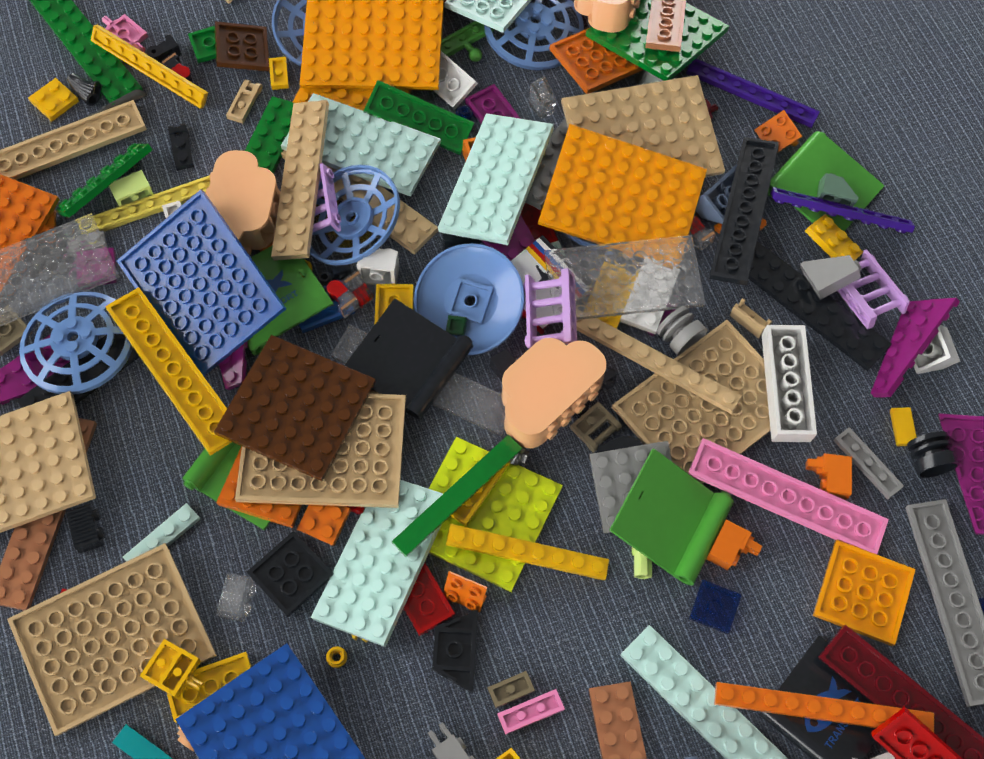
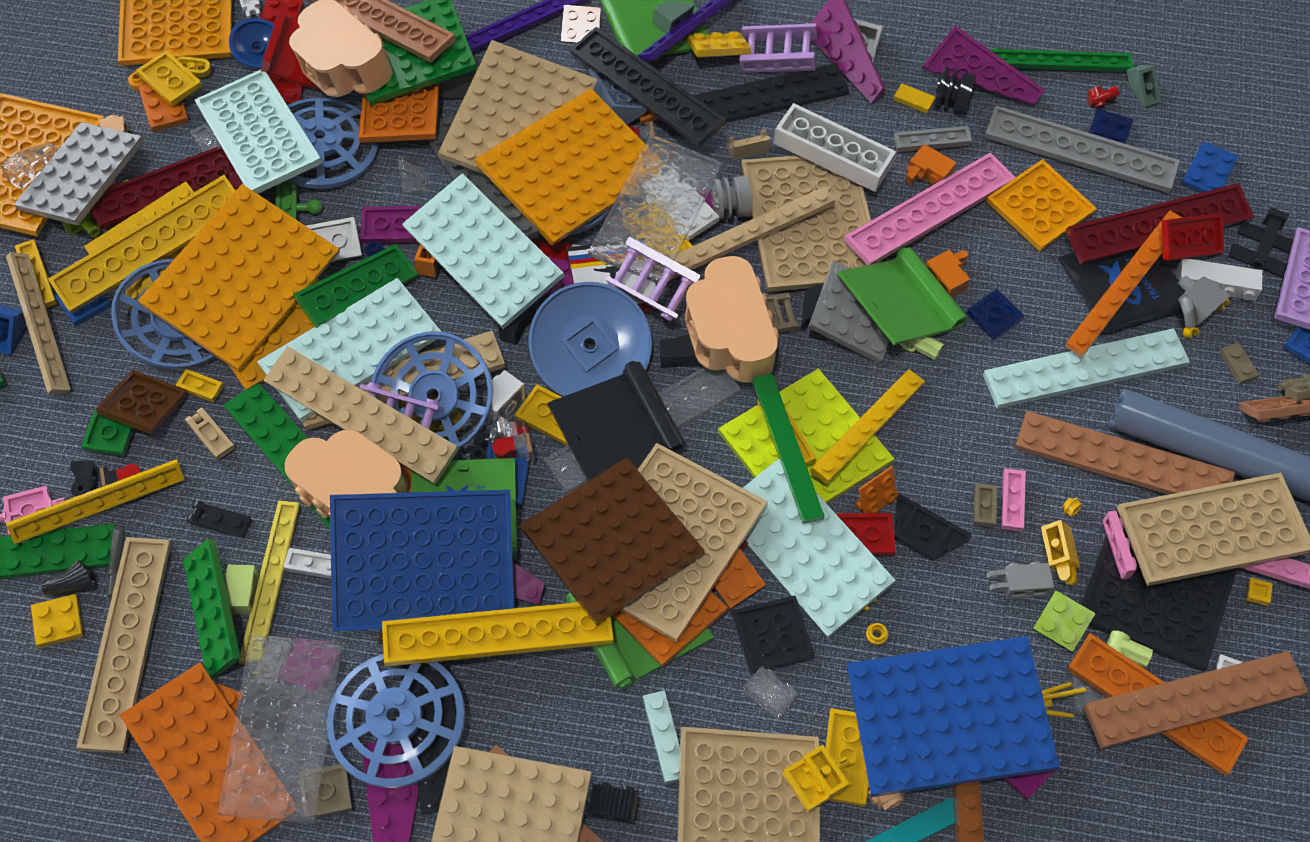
camera: 60 degrees left, 5 degrees down
(456, 325) = (604, 370): dark green tile -> none
(831, 274) = (752, 62): light grey slope -> none

